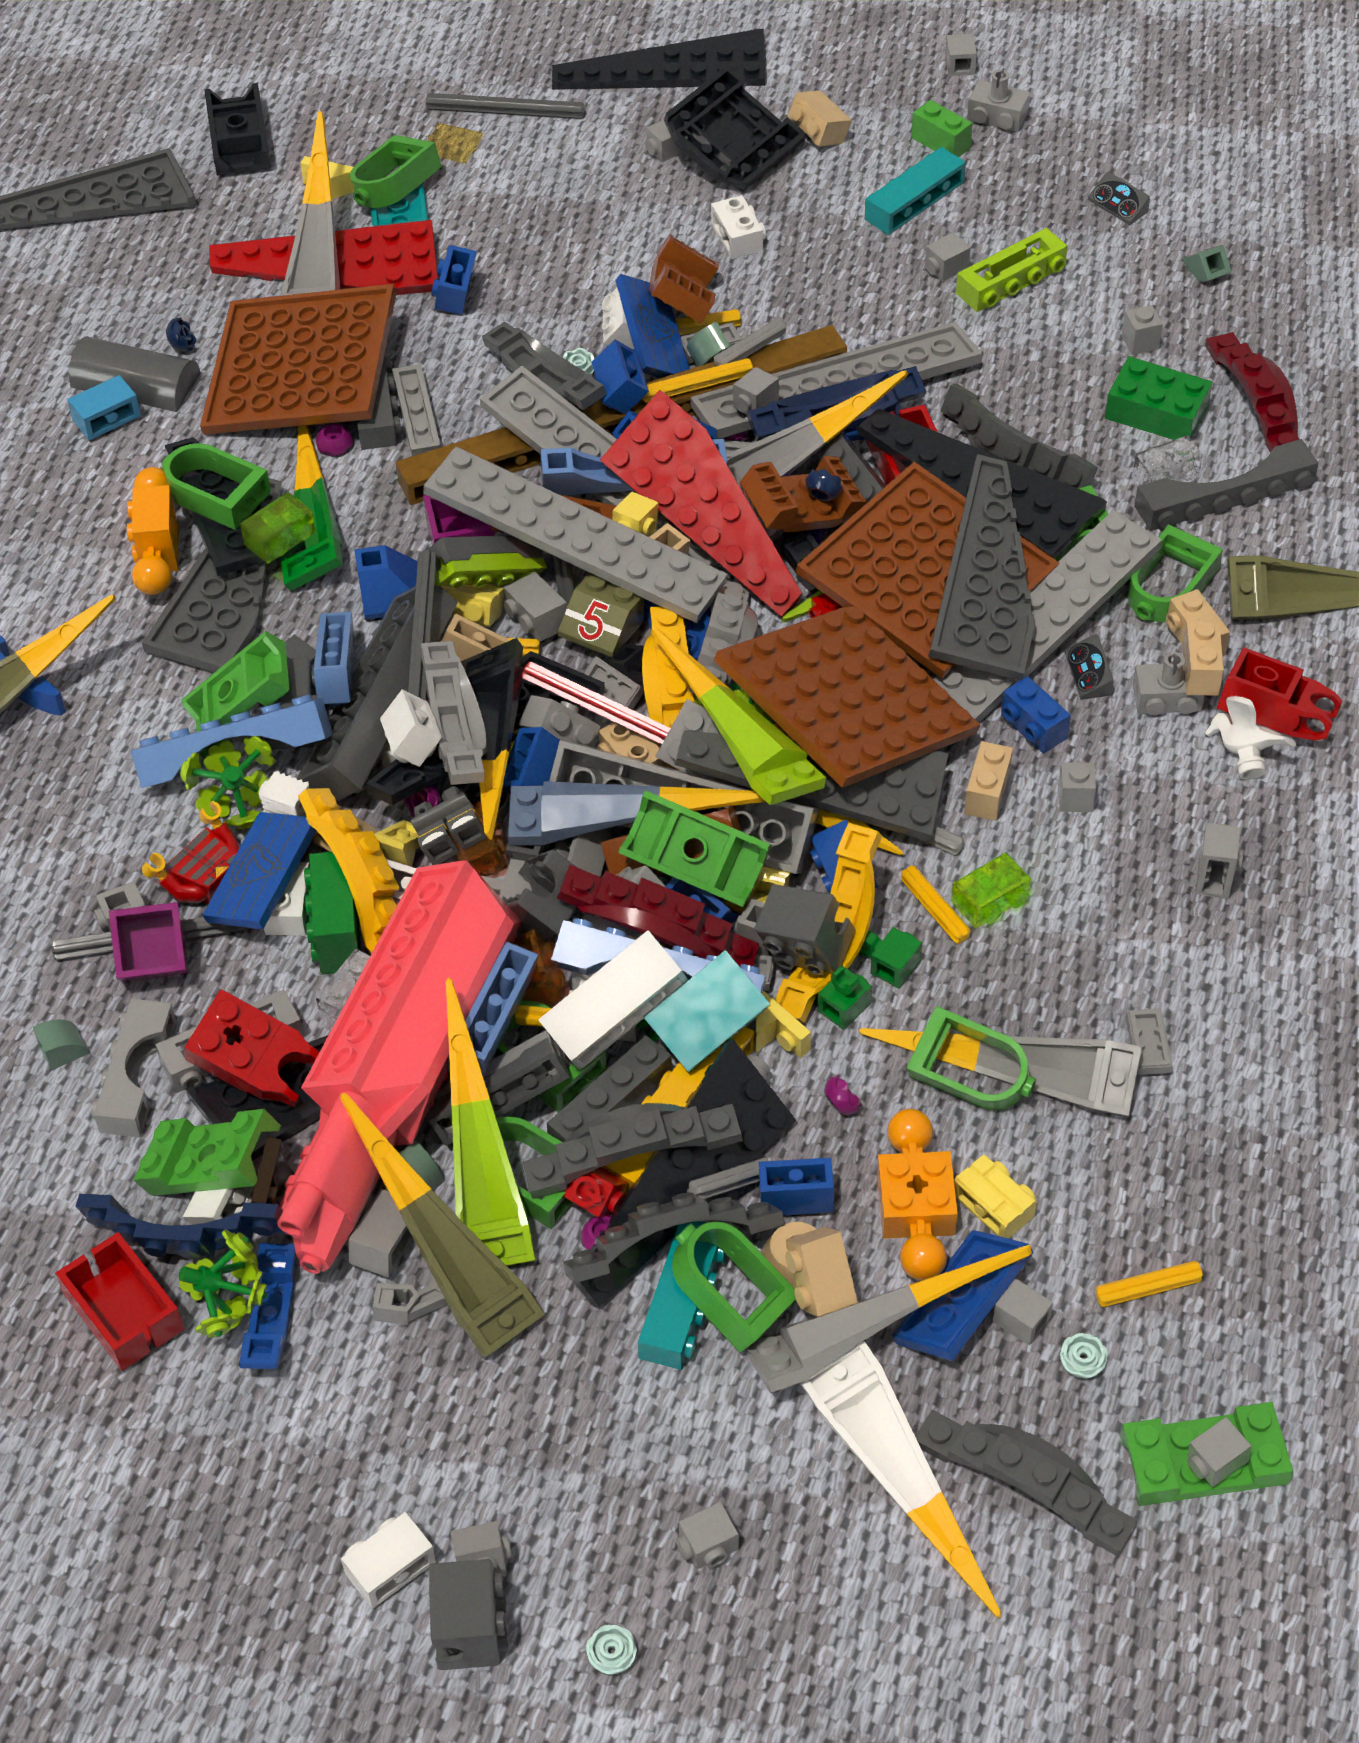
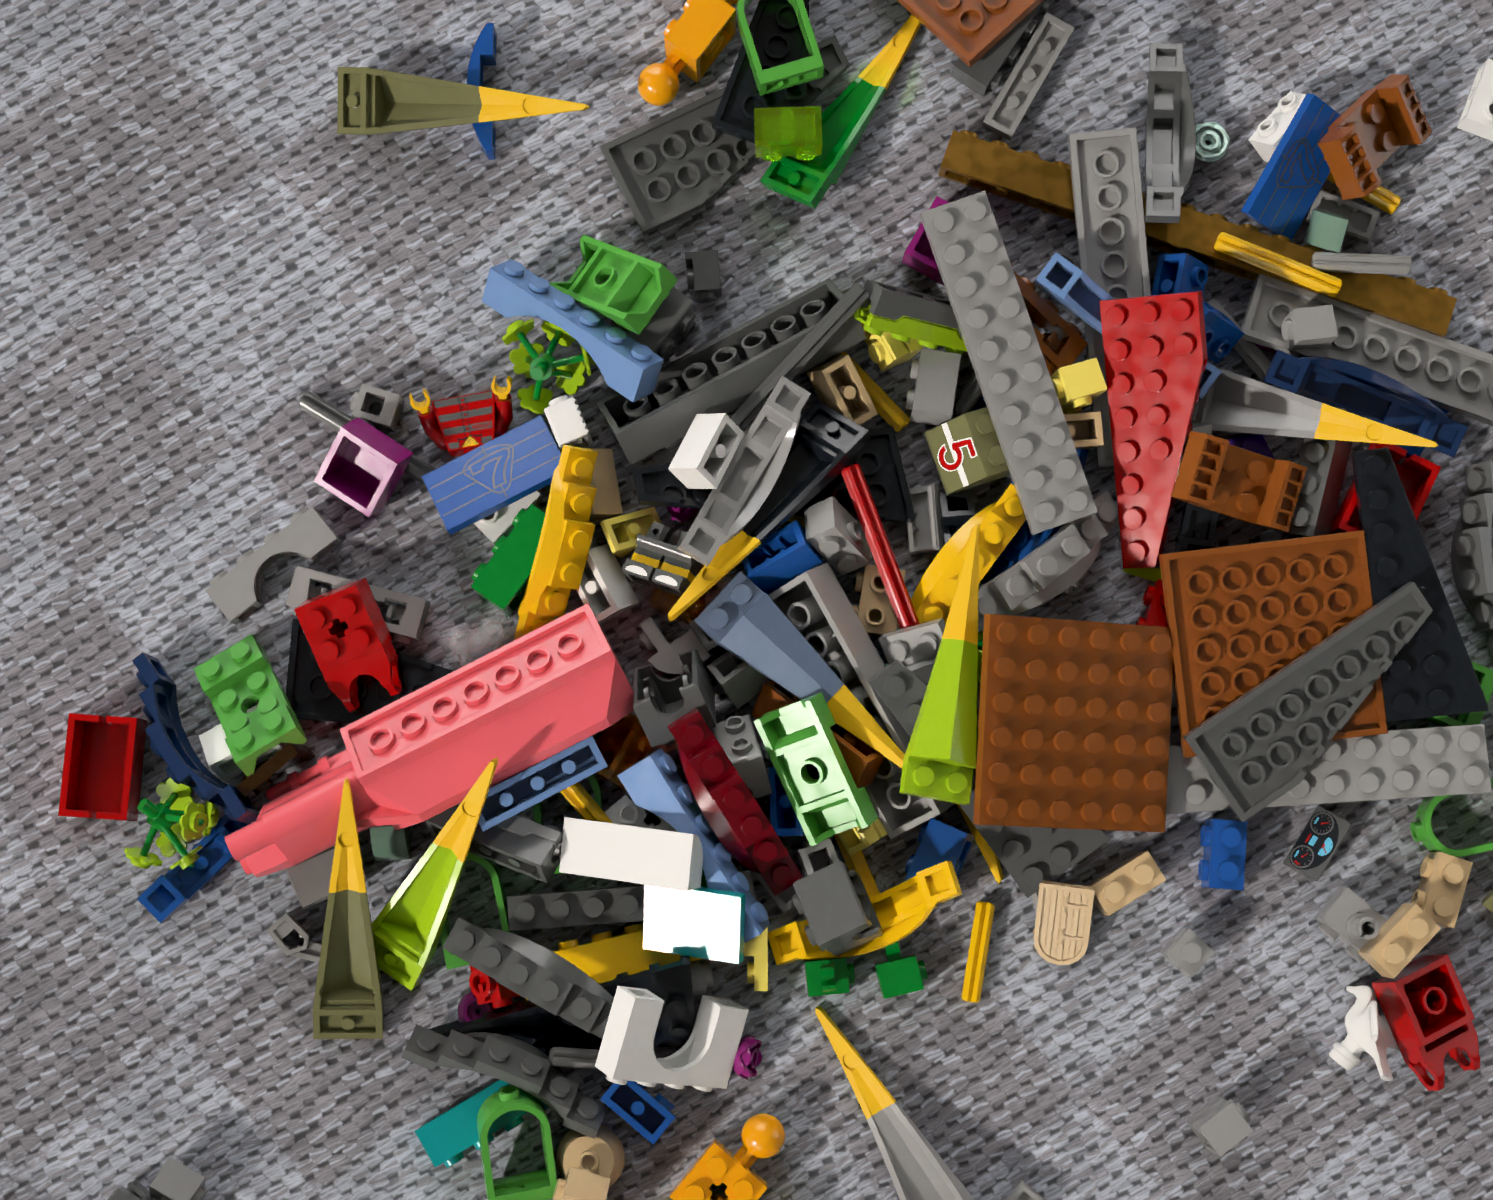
camera: 40 degrees right, 30 degrees up
(60, 1042) = (241, 492): sand green brick -> none
(334, 440) = (927, 56): magenta plate -> none
(334, 658) = (721, 310): medium blue brick -> none
(383, 576) = (842, 252): blue slope -> none
(388, 1559) = (115, 1135): white brick -> none
(621, 375) = (1210, 210): blue brick -> none
(753, 1123) = (701, 1063): none -> white arch
(823, 485) = (1259, 492): dark blue plate -> none
(931, 1044) = (846, 1080): bright green window -> none
(970, 829) = (1063, 921): none -> tan window
(991, 890) = (1028, 984): clear neon green brick -> none

